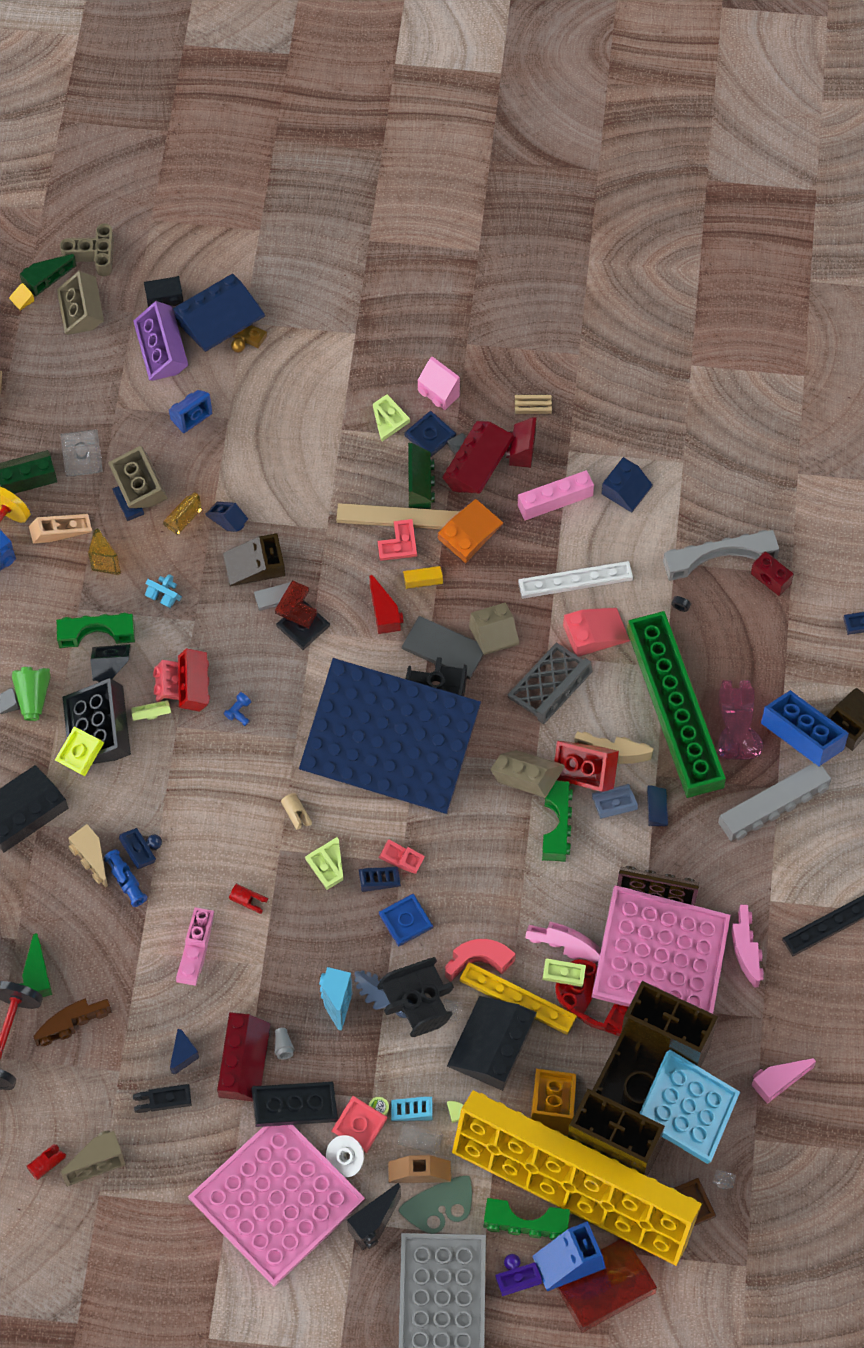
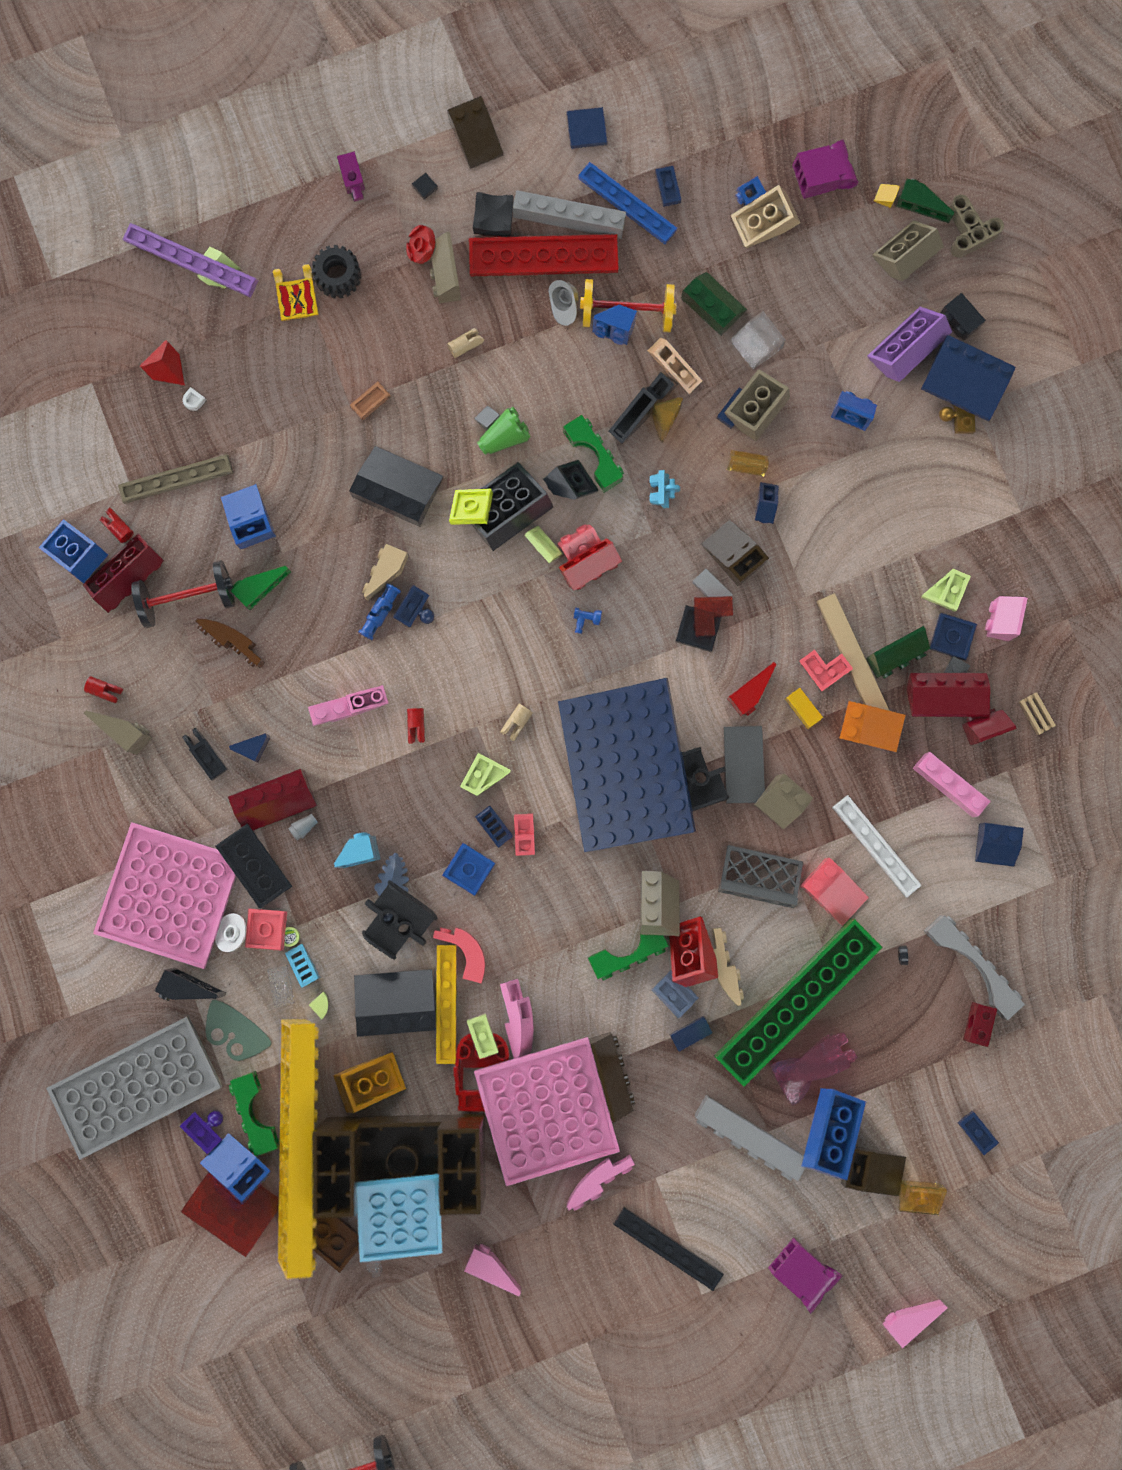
camera: 60 degrees right, 20 degrees up
(81, 570) = (642, 407): none -> black slope
(419, 1169) = (250, 1001): medium nougat slope -> none

